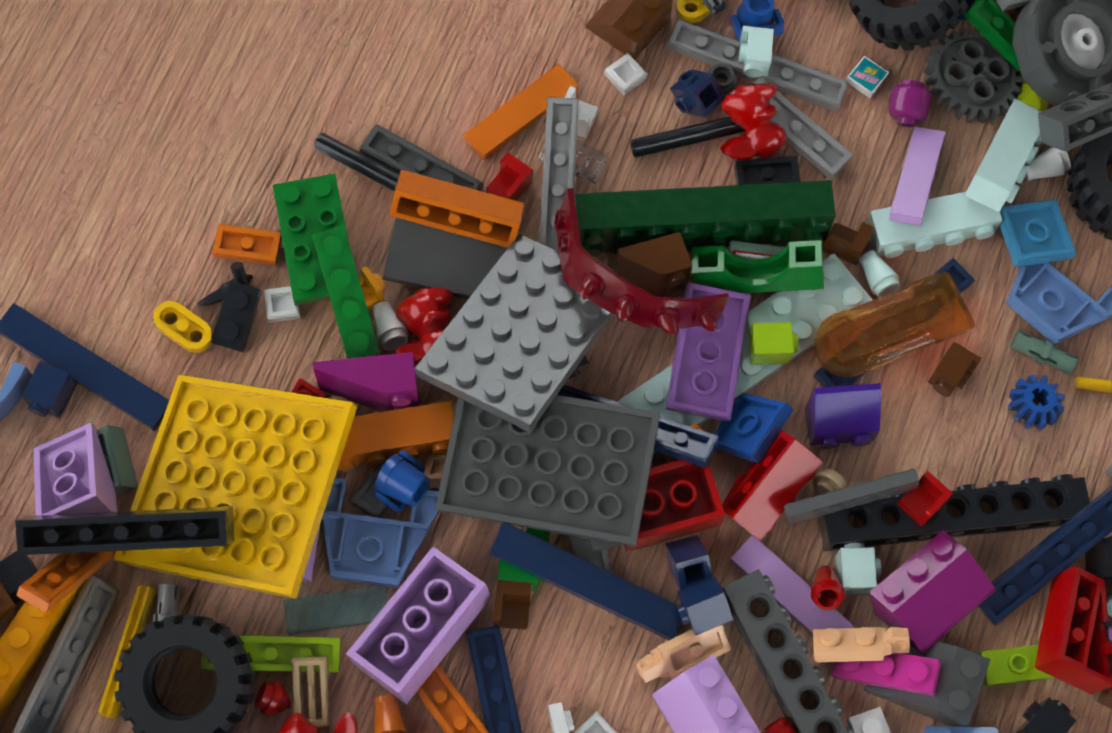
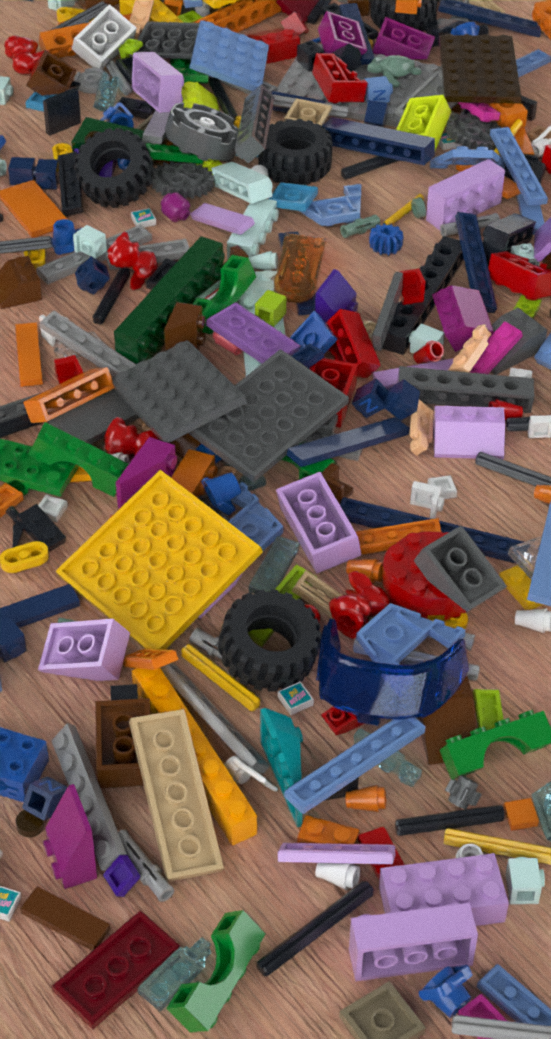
camera: 55 degrees left, 25 degrees down
(125, 530) = (150, 610): black brick -> none
(618, 295) = (176, 338): dark red piece -> none
(625, 74) = (47, 304): white tile -> none
(954, 369) = (342, 258): reddish brown brick -> none

